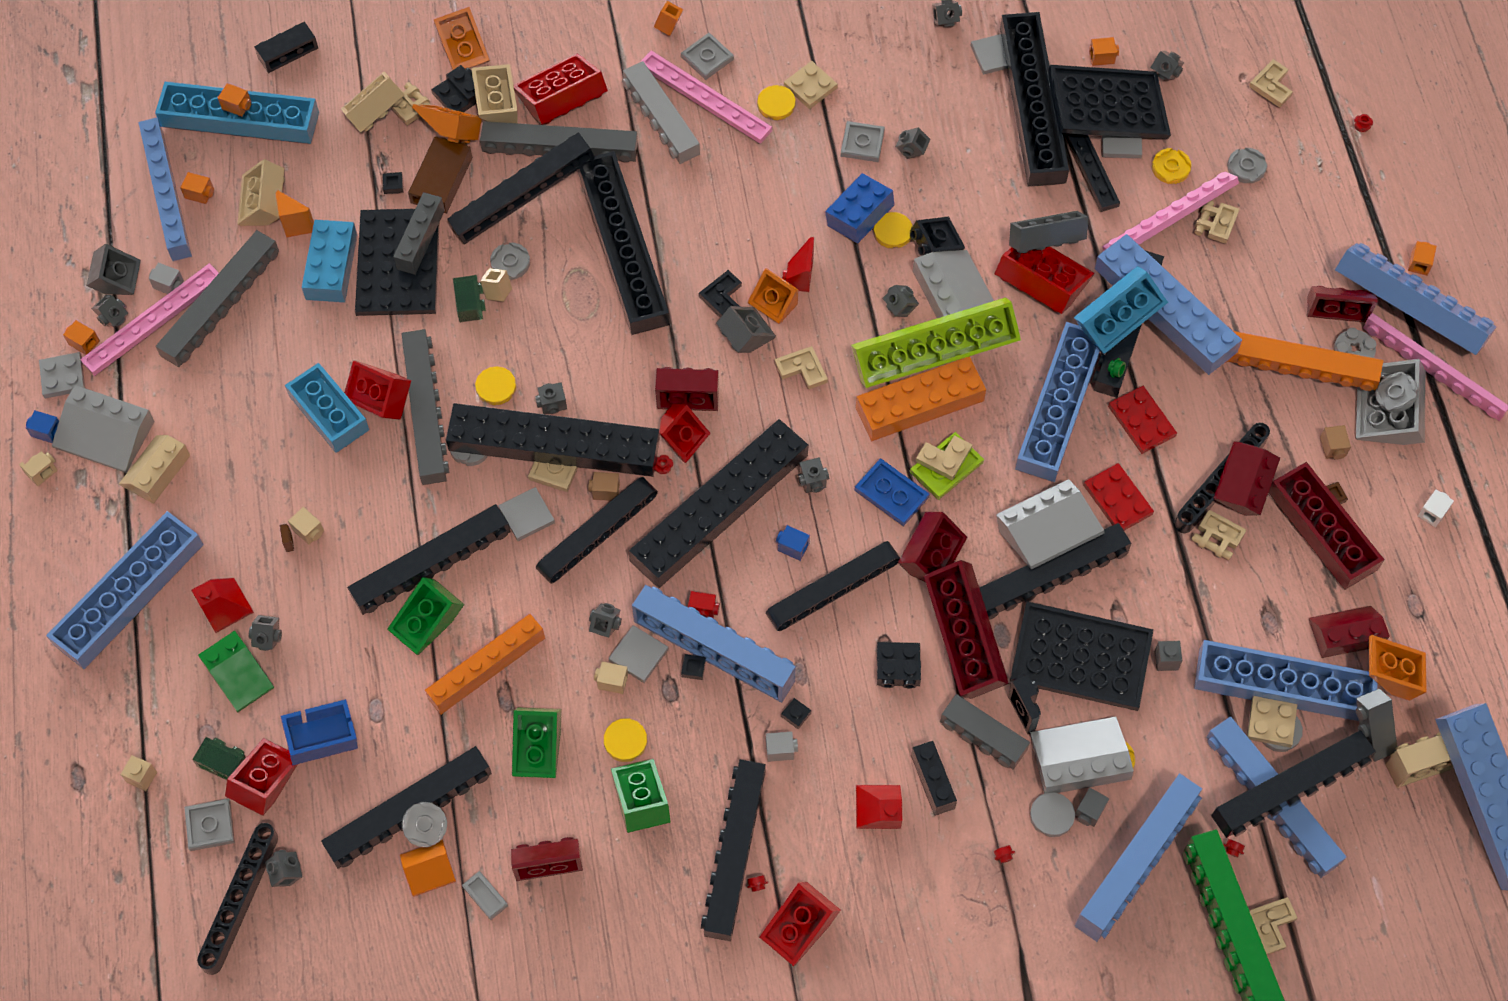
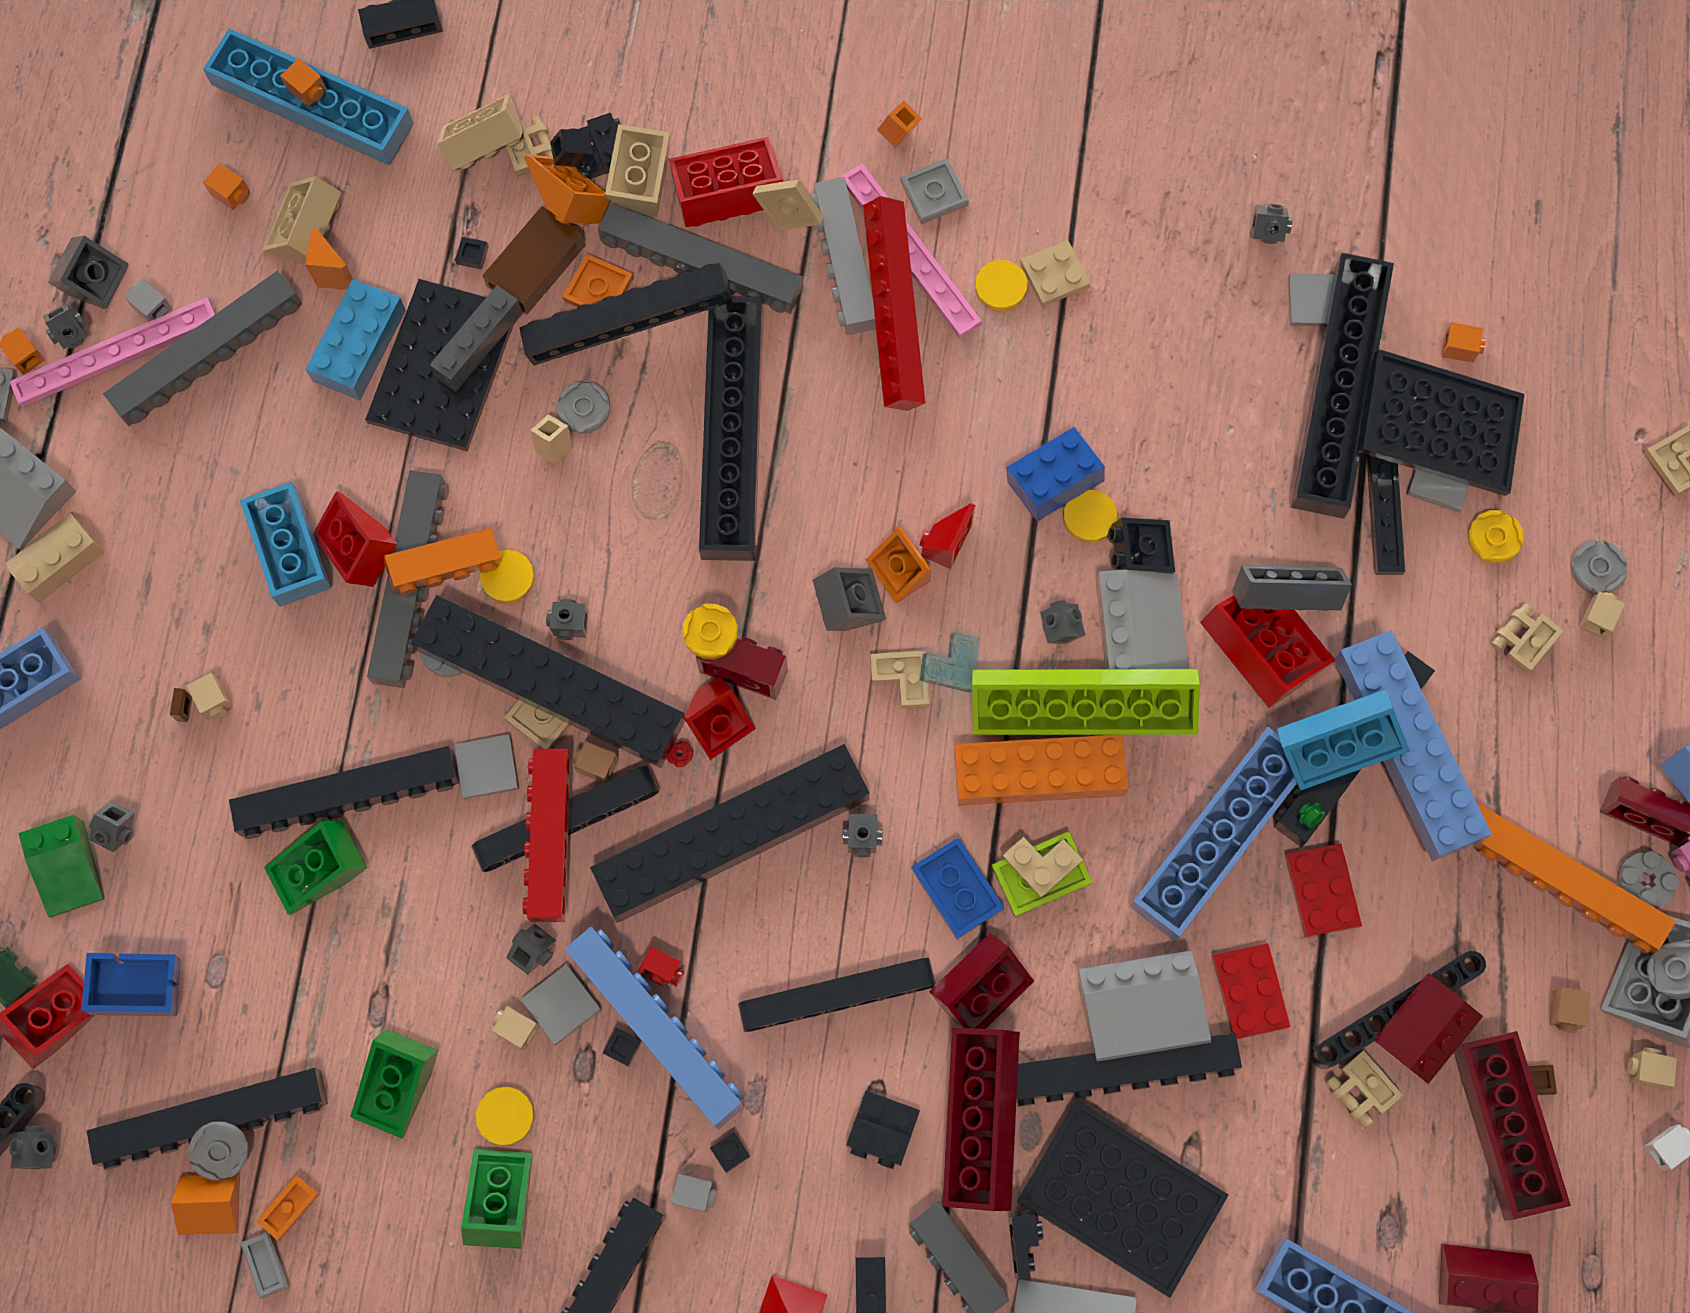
camera: 20 degrees right, 10 degrees up
(165, 189) = (186, 176): medium blue brick -> none
(222, 602) = (75, 766): red slope -> none
(443, 92) = (571, 148): none -> black brick
(447, 383) = (442, 561): none -> orange brick
(461, 39) = (623, 76): orange slope -> none
(468, 298) = (511, 446): clear green brick -> none
(485, 664) = (364, 957): orange brick -> none
(488, 850) = (288, 1207): none -> orange plate
(489, 175) = (595, 281): none -> orange plate
(546, 859) = (351, 1245): dark red slope -> none
(591, 538) = (548, 835): none -> red brick
(611, 87) = (788, 205): none -> tan plate
(659, 369) = (710, 631): none -> yellow tile
(708, 131) = (894, 304): none -> red brick
(718, 293) = (830, 536): black plate -> none
(793, 542) = (805, 918): blue brick -> none
(837, 351) = (957, 668): none -> clear light blue plate
(862, 141) = (1095, 375): light grey tile -> none
(912, 143) = (1158, 401): dark grey brick -> none
(1168, 65) = (1542, 390): dark grey brick -> none
(1168, 655) = (1234, 1238): dark grey brick -> none
(1179, 209) = (1474, 607): bright pink plate -> none
(1260, 192) = (1602, 614): none -> tan brick
(1404, 463) = (1652, 1069): none -> tan brick

